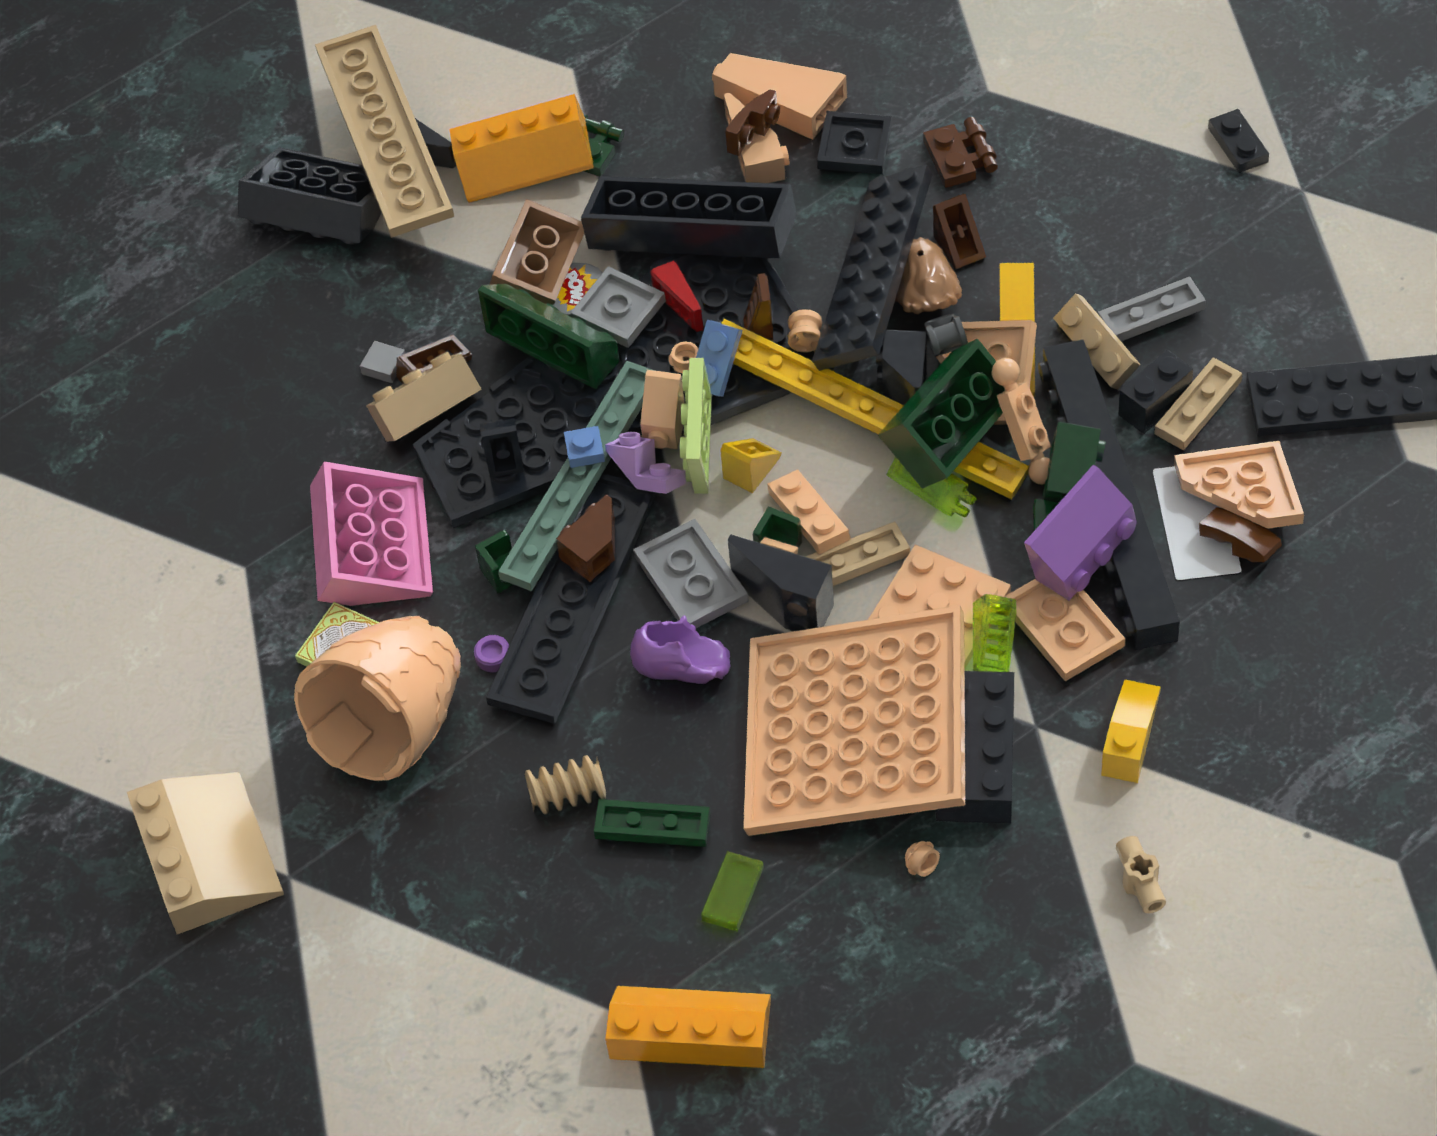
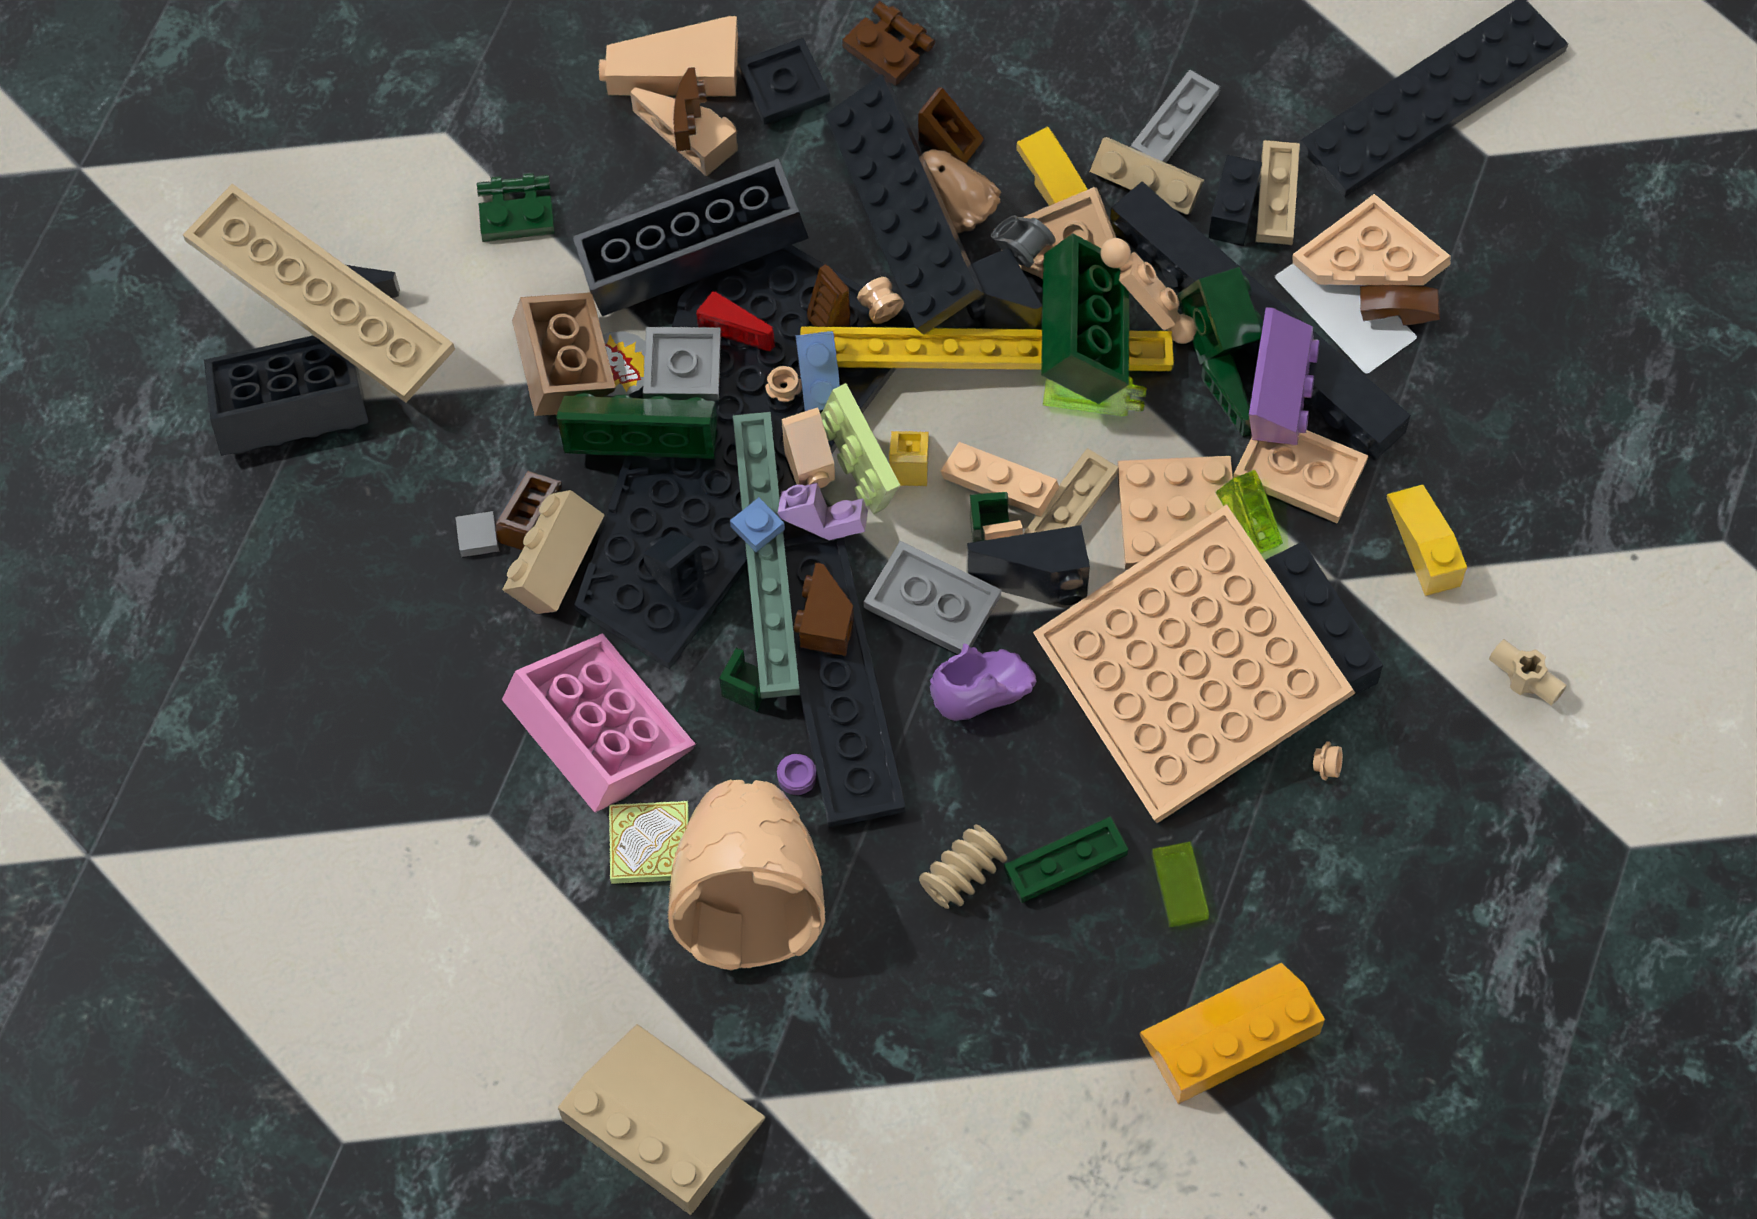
camera: 35 degrees left, 10 degrees up
(521, 148) = (468, 244): light orange slope -> none

